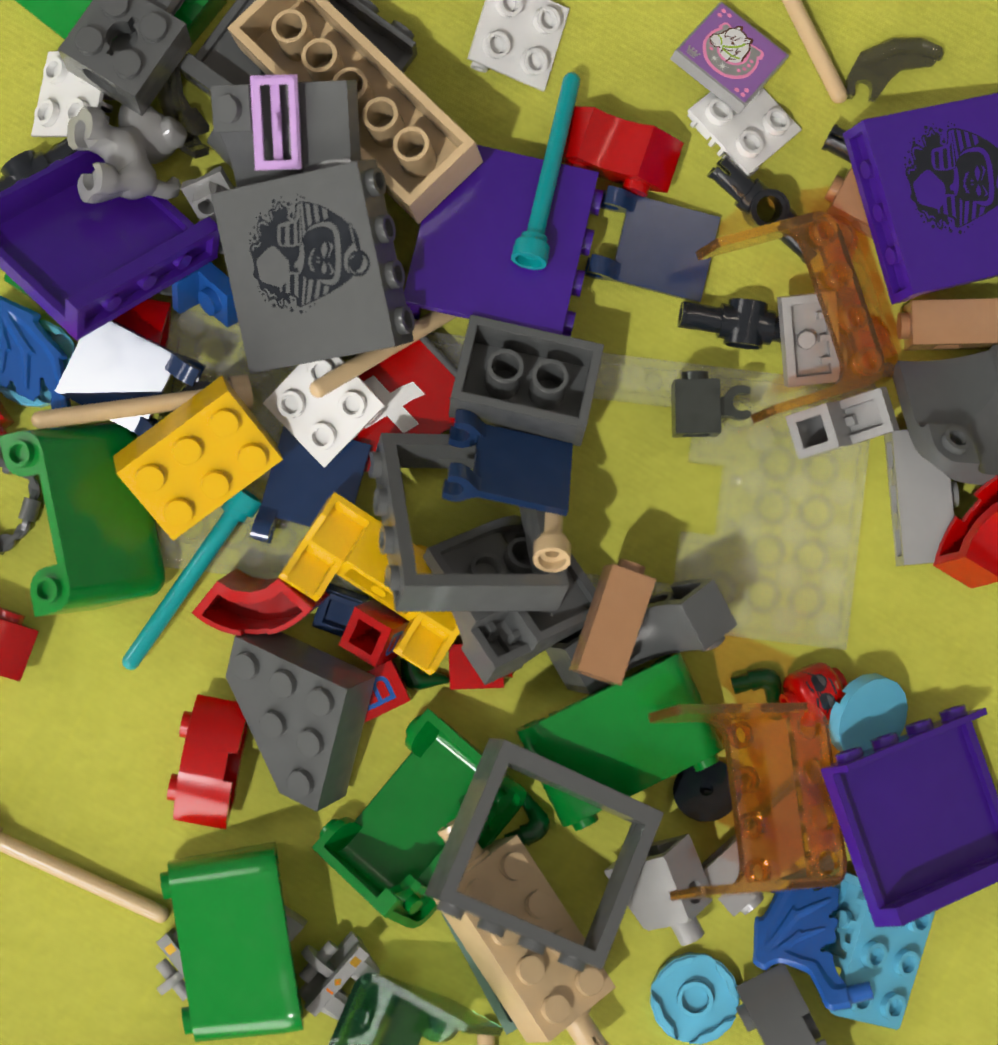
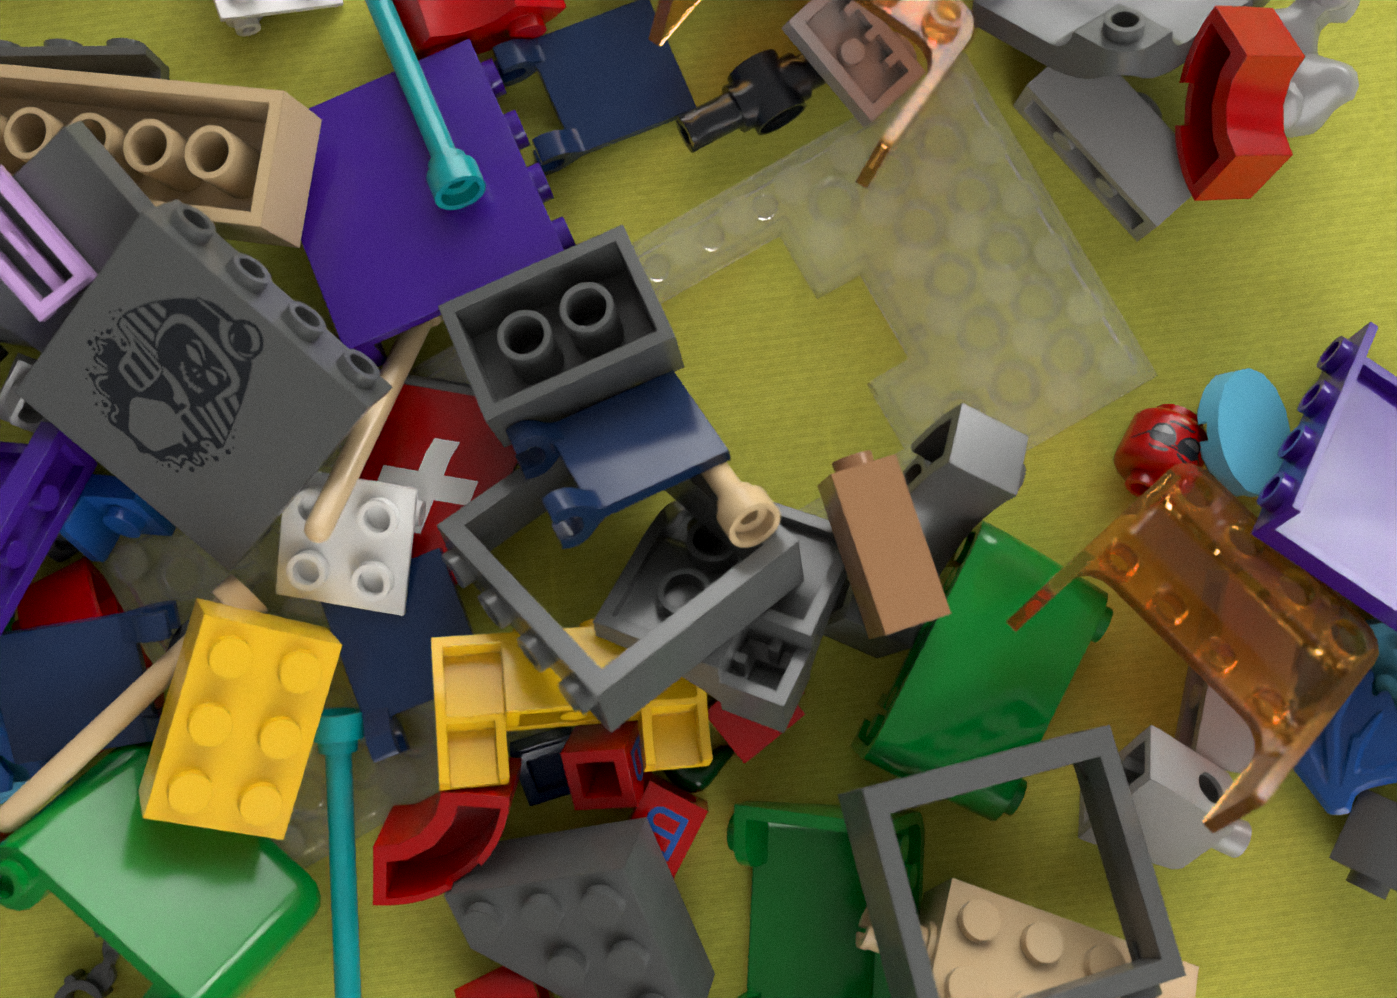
camera: 35 degrees left, 0 degrees up
(537, 825) = (958, 848): dark green animal -> none
(694, 998) = (1285, 901): medium azure tile -> none
(699, 406) = (787, 218): pearl dark grey brick -> none
(703, 793) = (1126, 660): black piece -> none
(758, 679) = (1083, 482): dark green animal -> none
(842, 423) = (968, 112): light grey brick -> none

